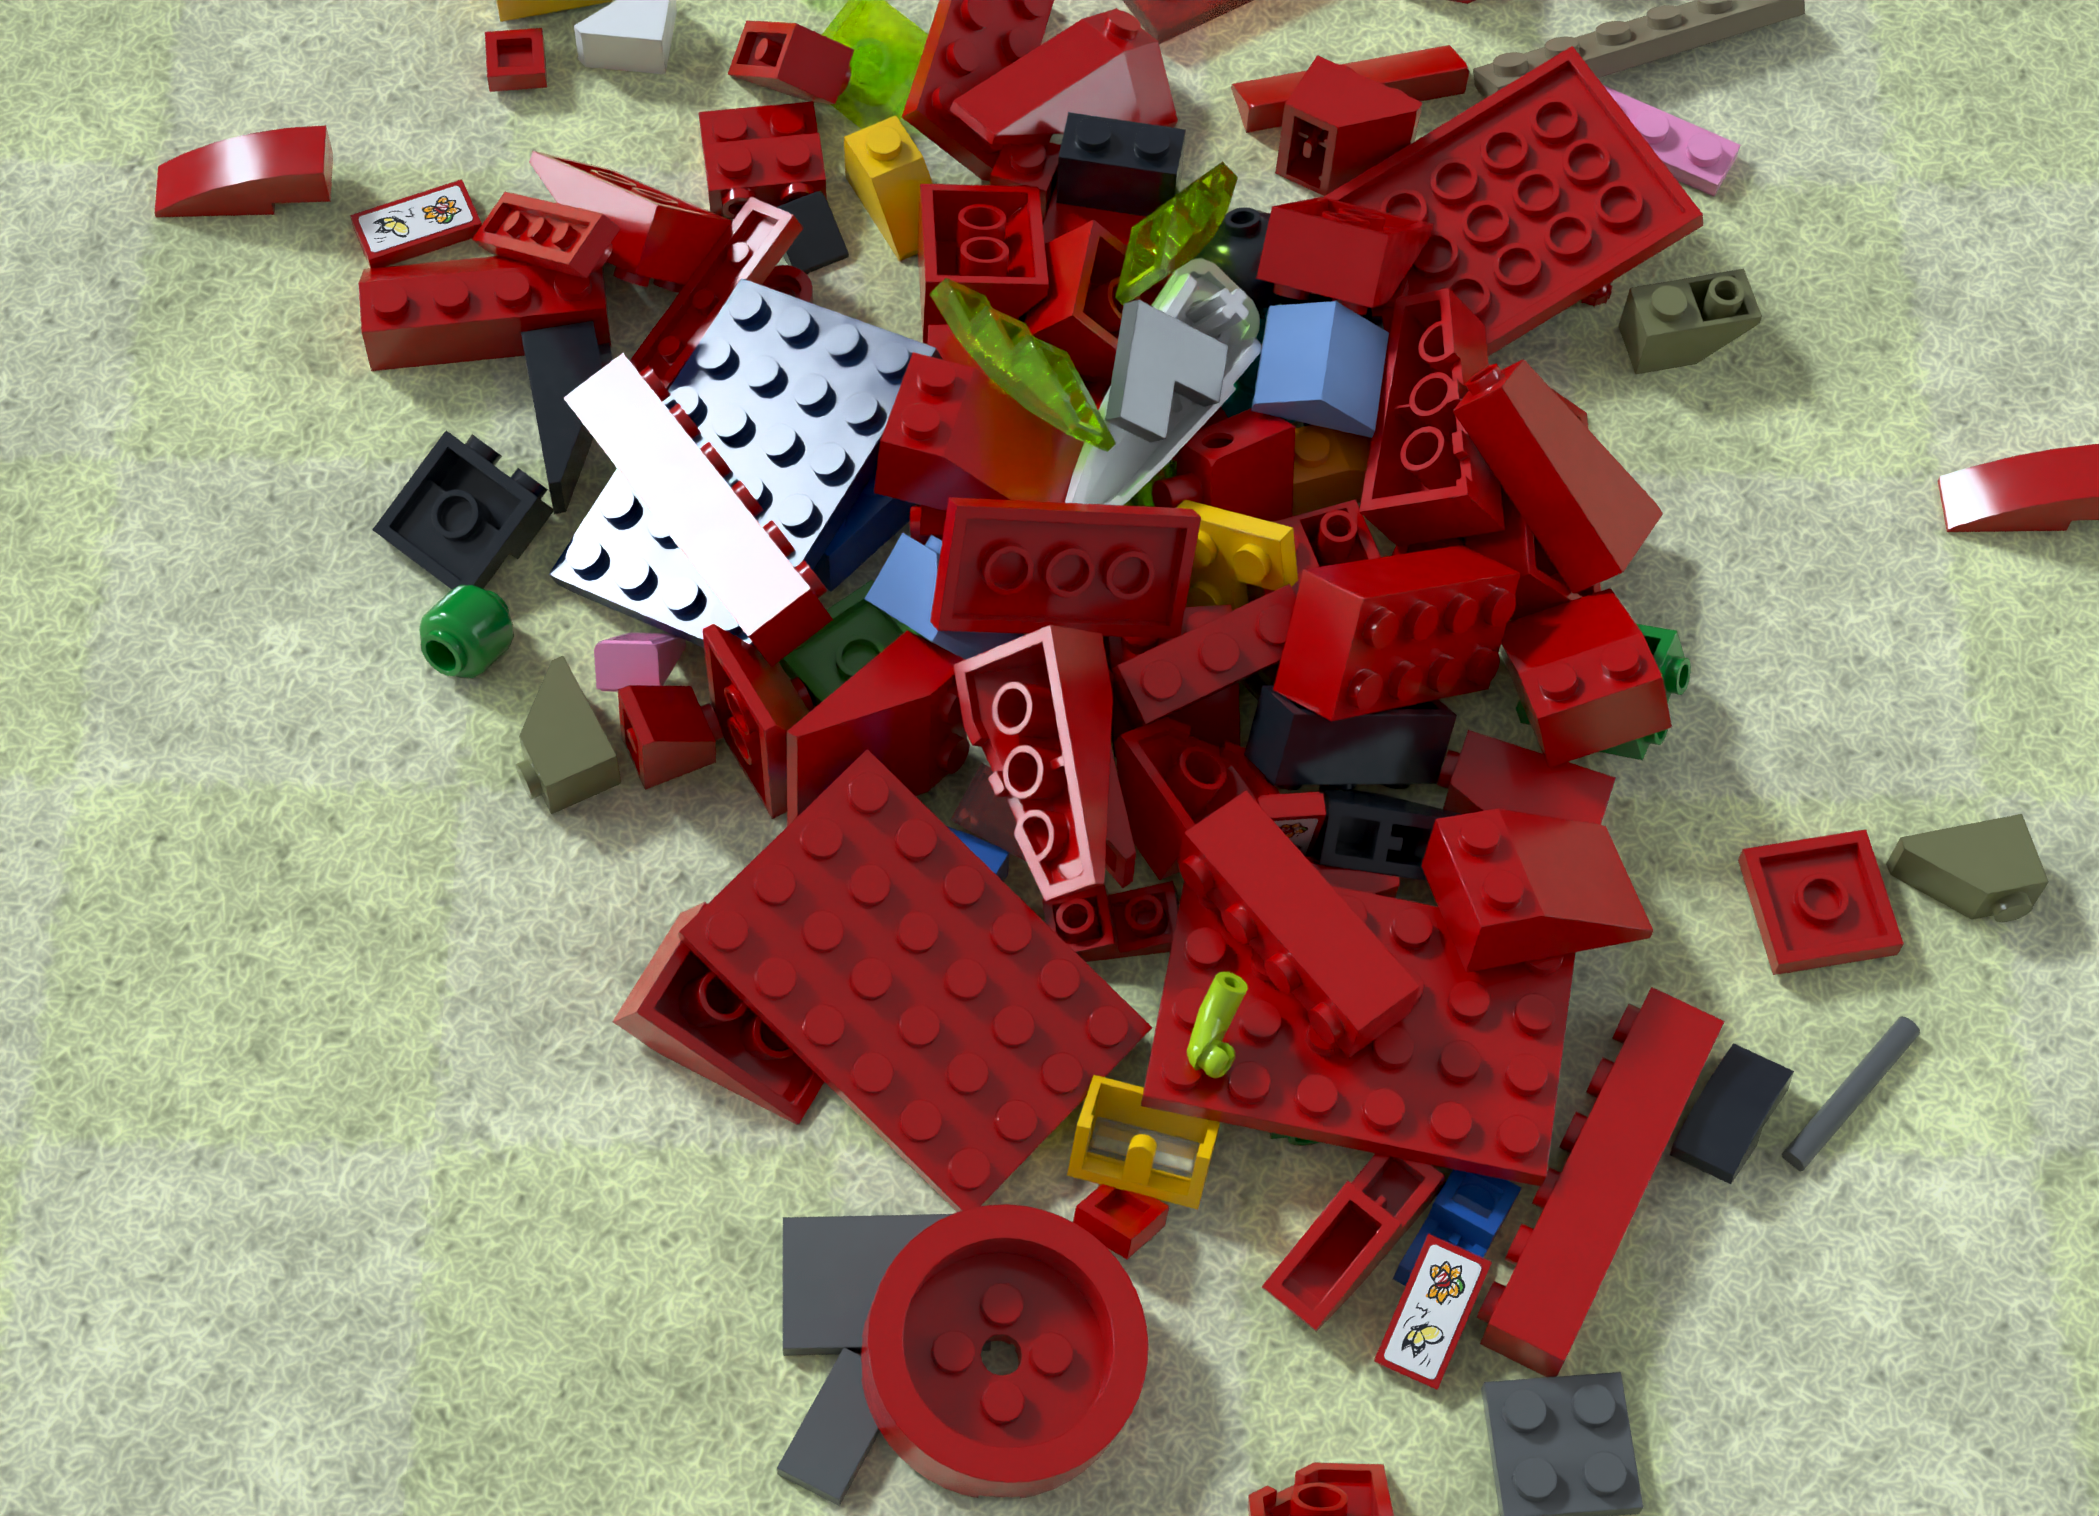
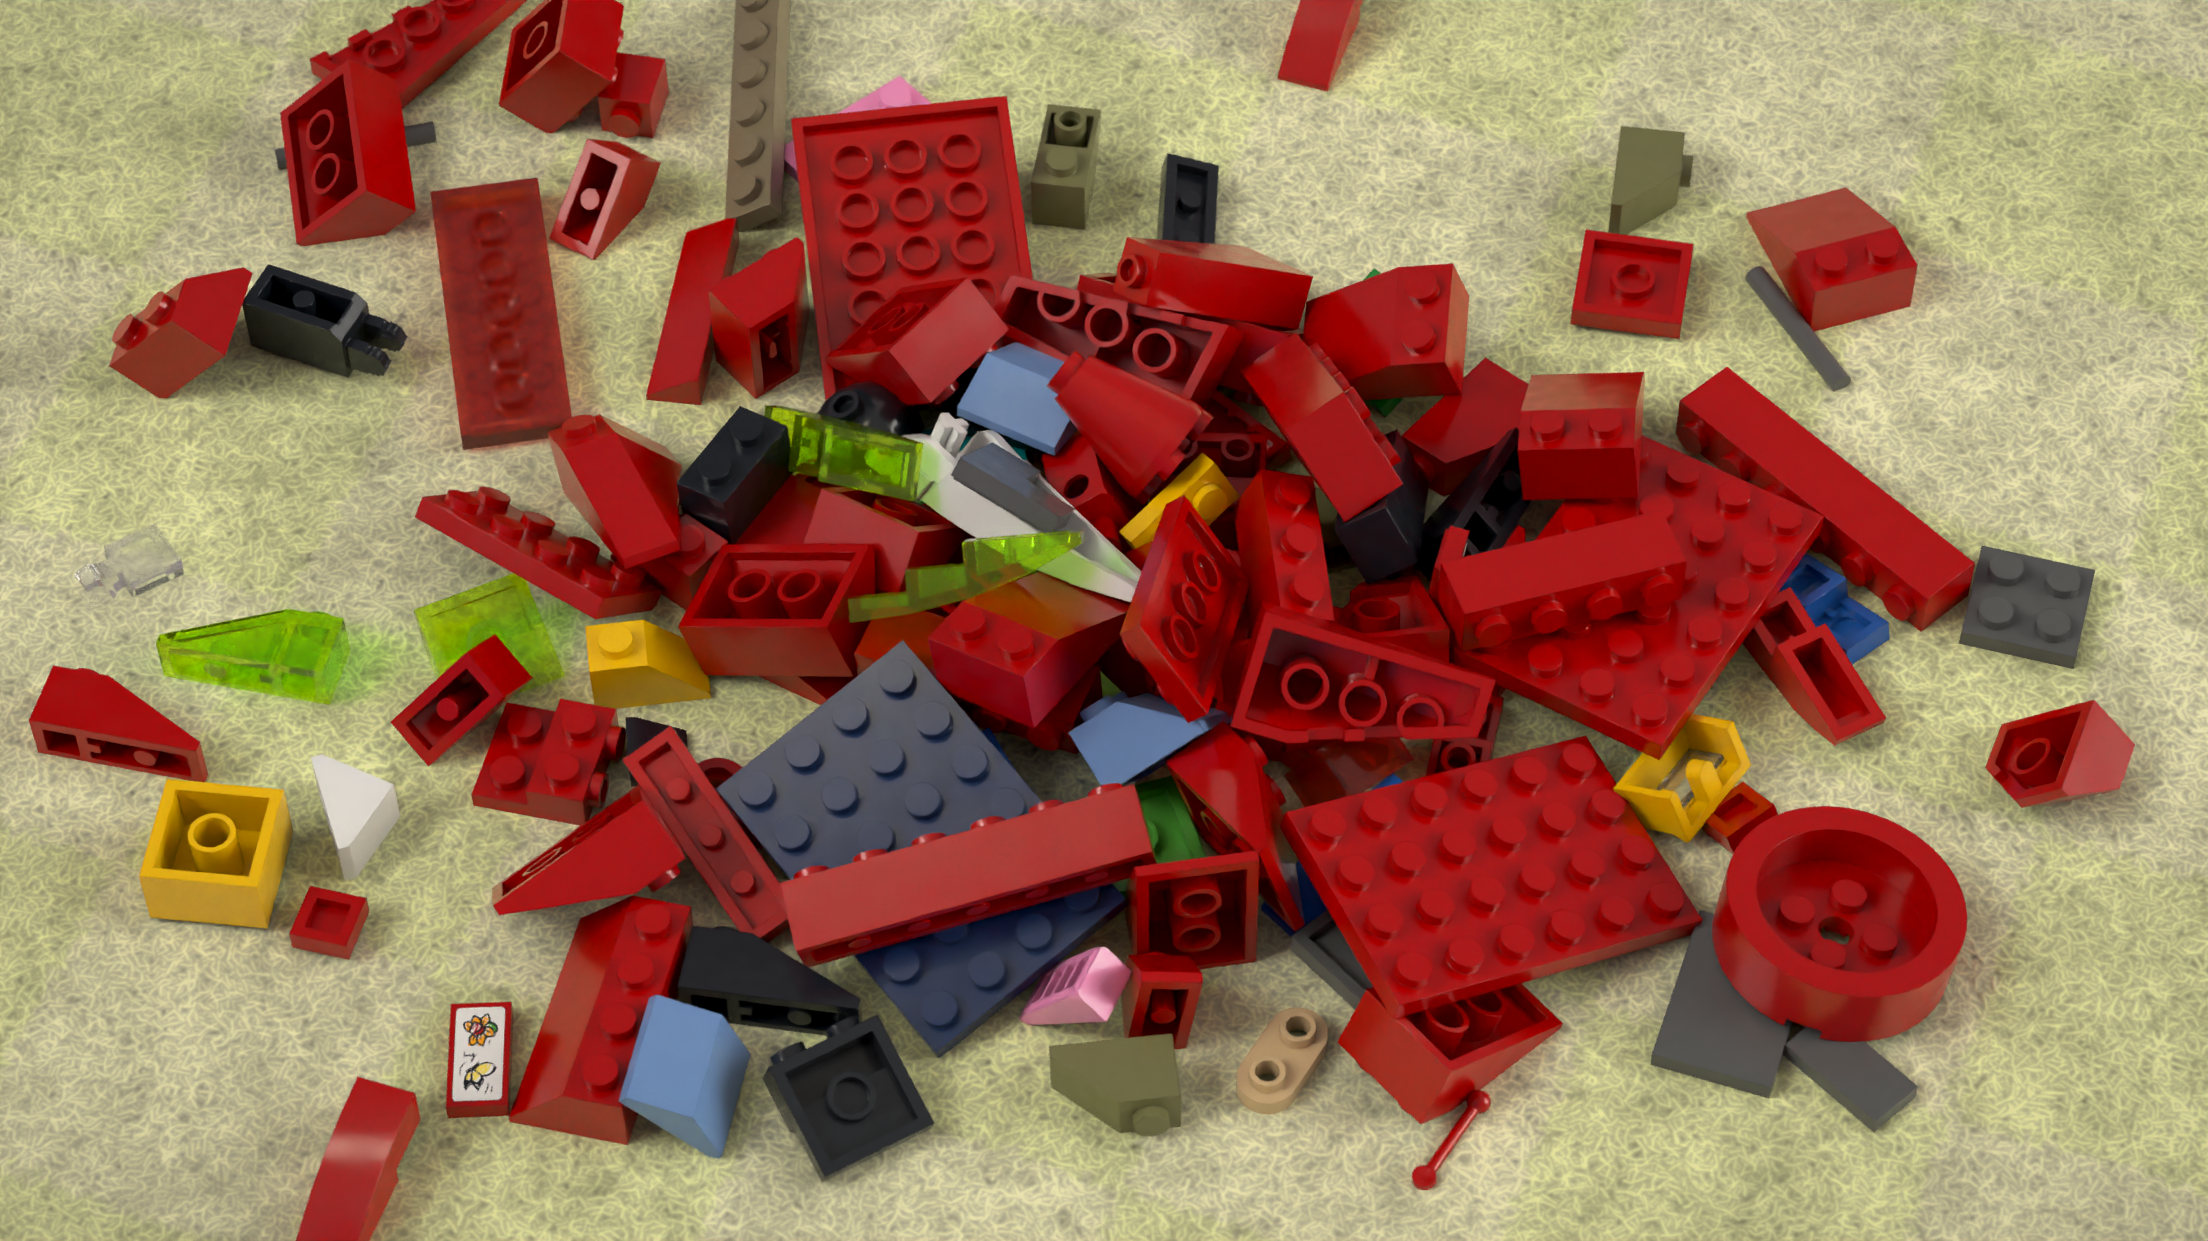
camera: 65 degrees left, 10 degrees down
(431, 377) = (686, 1073): none -> medium blue slope
(466, 631) = (974, 1128): green head -> none
(547, 235) = (596, 920): red plate -> none
(565, 1050) = (1425, 1175): none -> red hinge
(652, 877) = (1283, 1056): none -> tan plate
(1212, 1023) = (1628, 668): lime arm -> none
(1298, 446) = (1128, 421): none -> red cone
(1432, 1311) = (1895, 640): tile -> none
(1692, 448) = (1187, 200): none -> black plate
(1731, 1113) = (1799, 395): black slope -> none
(1971, 1096) = (1836, 257): none -> red slope

